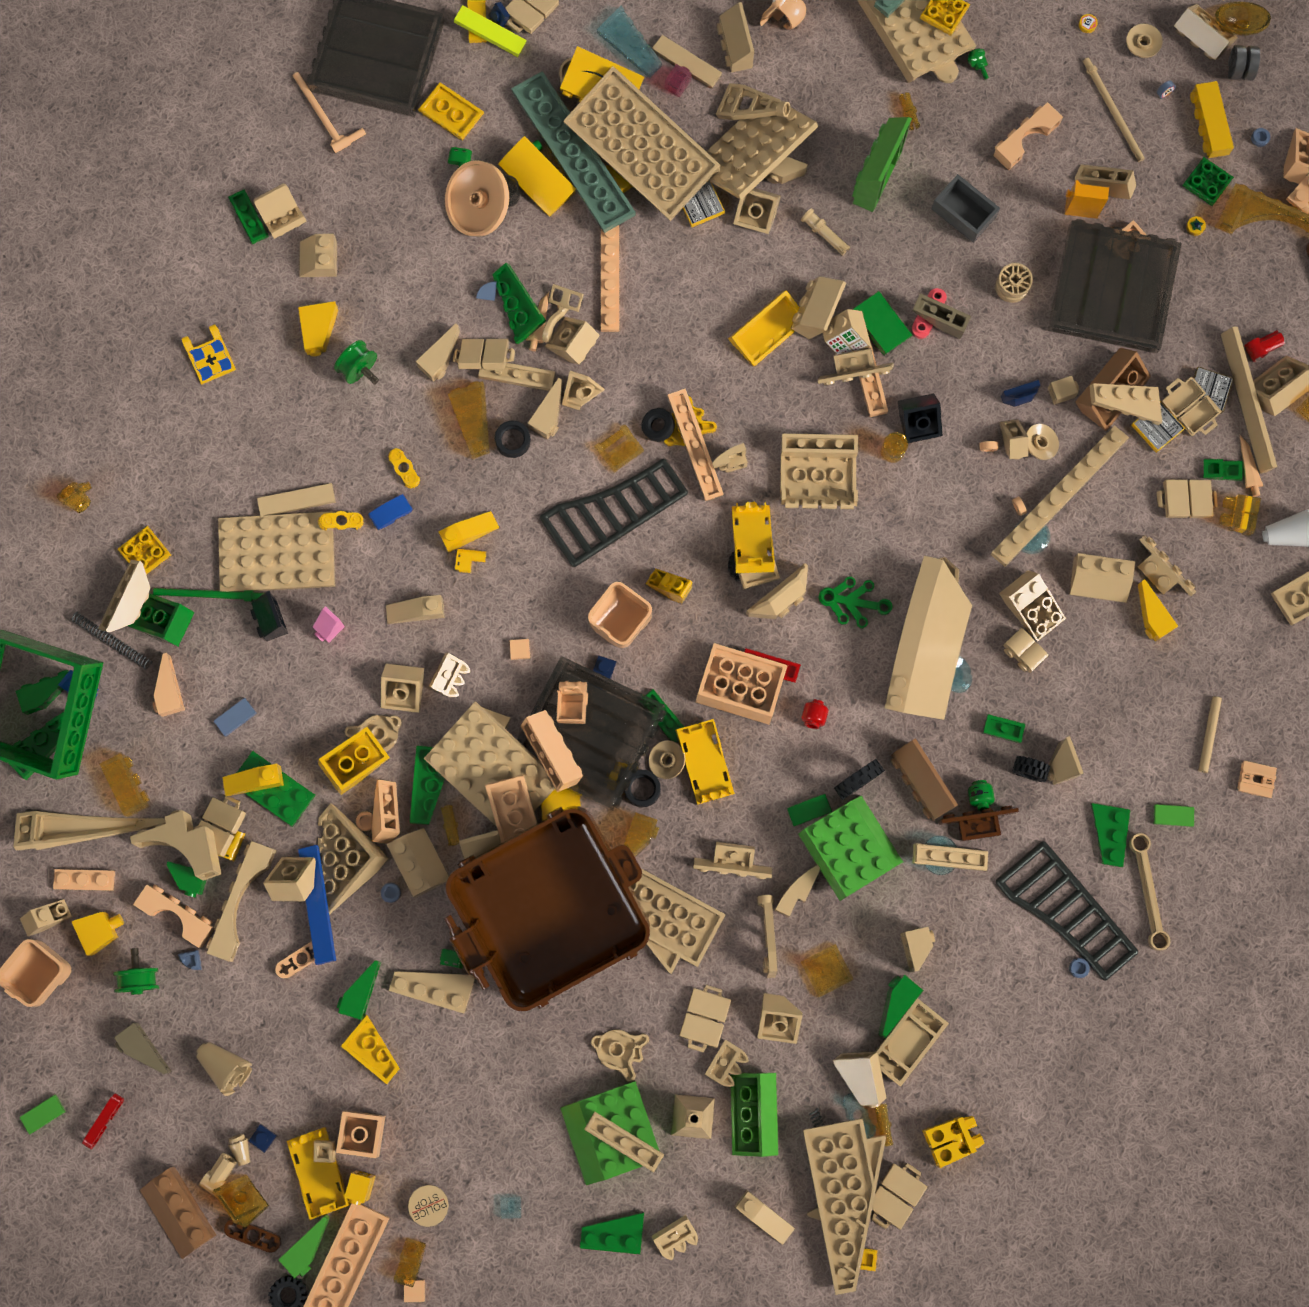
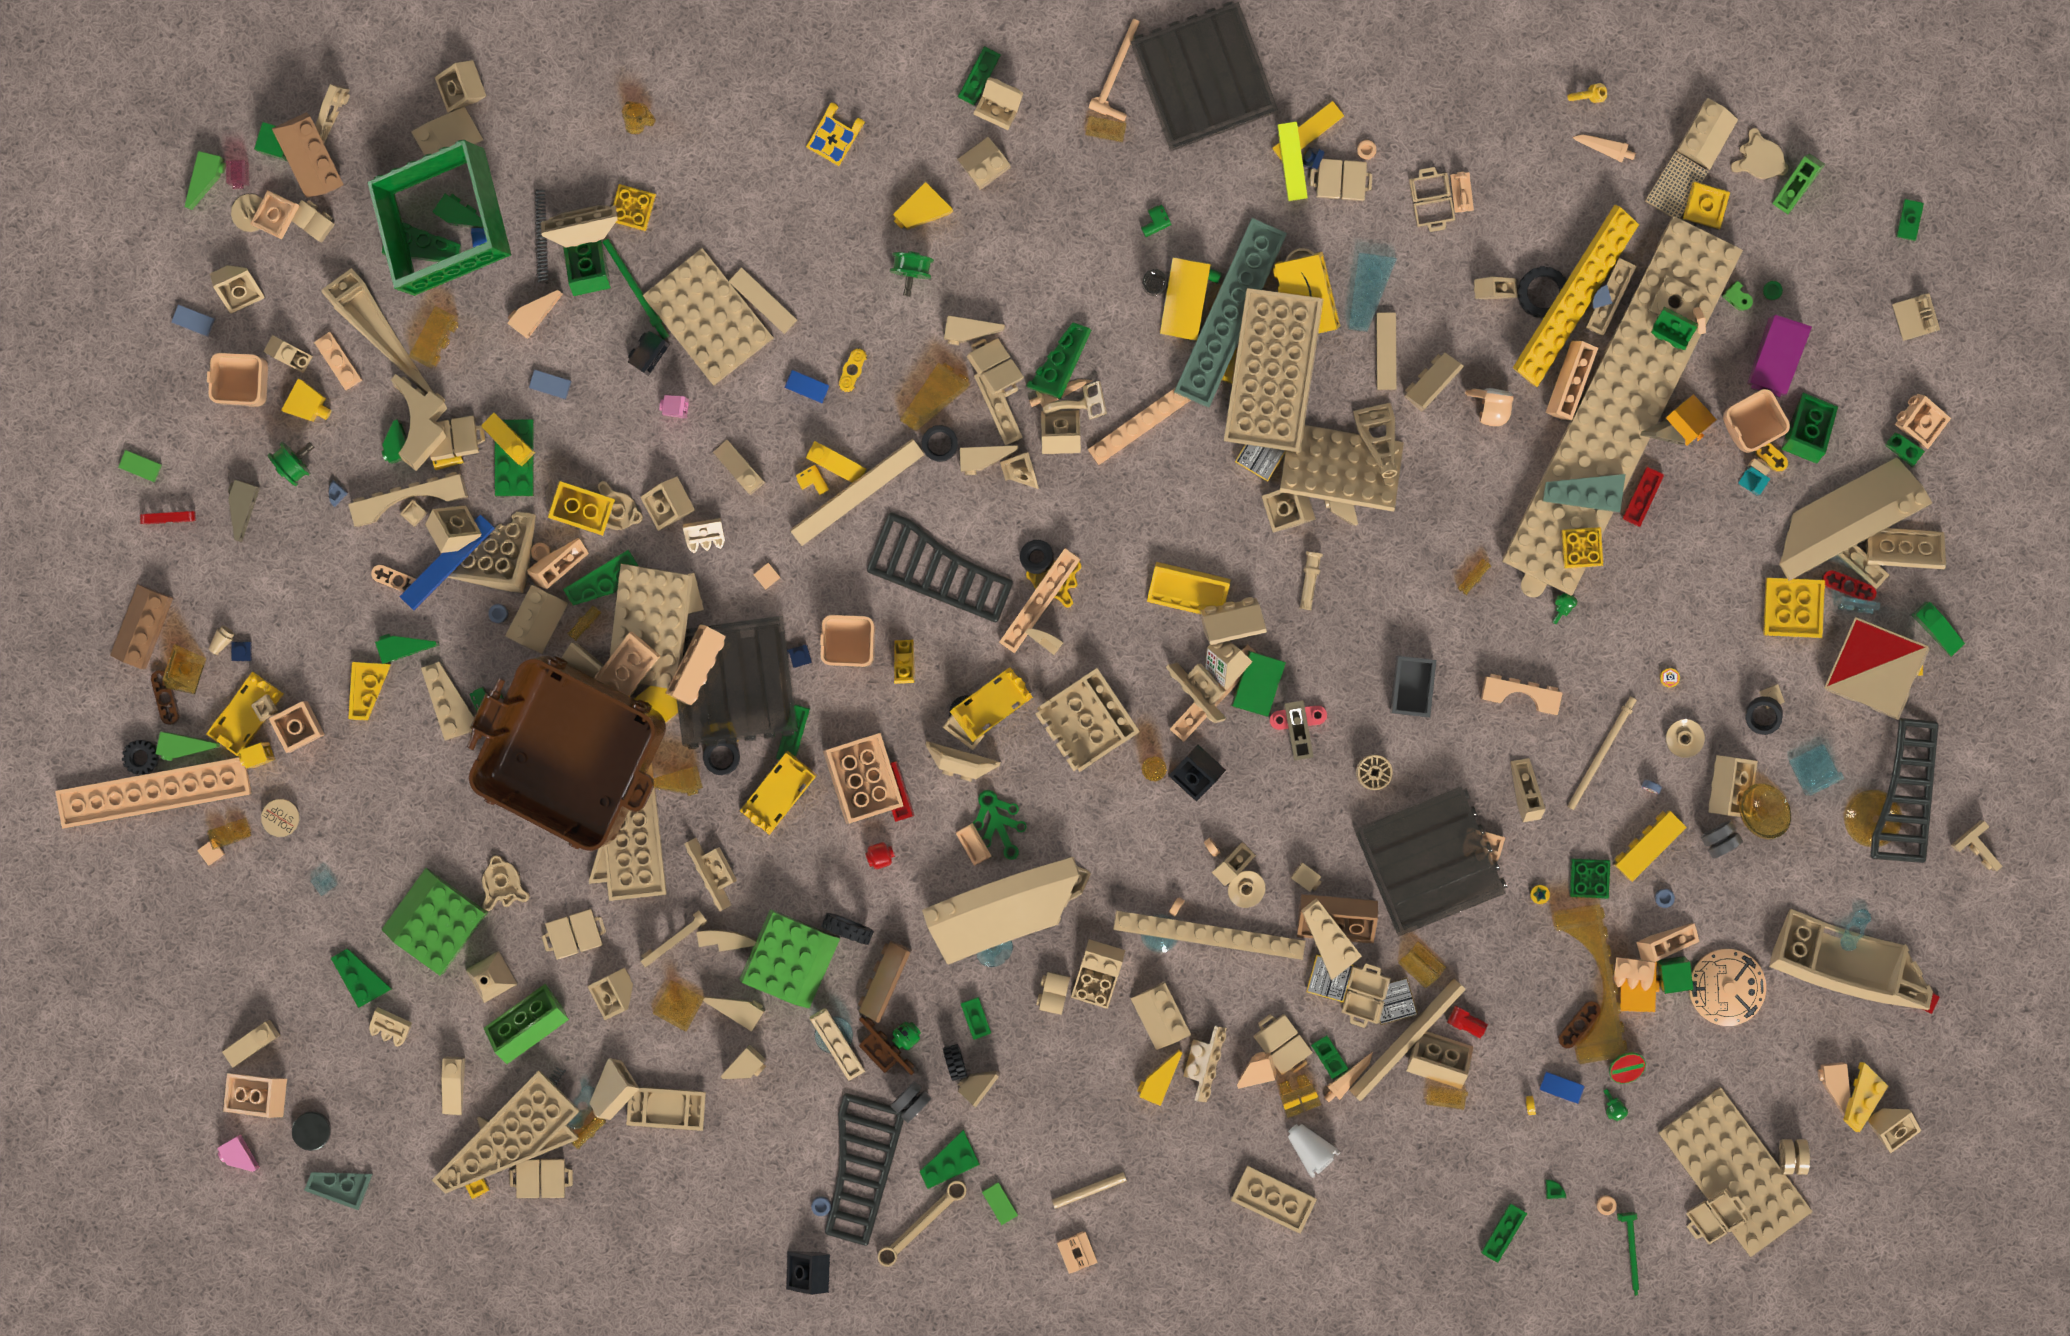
camera: 55 degrees right, 10 degrees up
(195, 929) = (362, 479): light nougat arch -> none
(218, 1174) = (185, 637): tan piece -> none
(223, 1067) = (272, 581): tan cone -> none
(256, 905) = (413, 513): none -> tan tile
(328, 520) = (762, 342): yellow piece -> none
(361, 151) = (1105, 129): none -> clear yellow tile
(451, 111) = (1196, 179): yellow tile -> none
(477, 198) = (1126, 263): light nougat dish -> none
(487, 291) = (1054, 329): sand blue tile -> none
(504, 531) = (857, 492): none -> tan tile
(572, 702) = (748, 652): light nougat piece -> none
(623, 453) = (993, 544): clear yellow plate -> none
(624, 1141) = (431, 937): tan tile -> none
(659, 756) = (751, 757): tan dish -> none
(678, 80) = (1362, 357): clear pink brick -> none
(726, 1063) = (549, 974): tan plate -> none
(809, 810) = (798, 904): green slope -> none
(857, 633) = (973, 844): none -> light nougat tile
(867, 919) = (741, 1011): none -> tan slope
(880, 162) = (1397, 588): bright green slope -> none
(899, 999) = (693, 1079): green slope -> none
(957, 1134) = (612, 1193): yellow hips -> none
(1020, 394) = (1277, 844): dark blue slope -> none
(1041, 828) = (911, 1102): none -> flat silver wheel
(1086, 200) = (1489, 785): light orange container -> none
(1130, 1018) = (808, 1272): none -> black slope
(1194, 350) = (1422, 965): none -> clear yellow panel
(1198, 531) = (1258, 1070): none -> light nougat slope

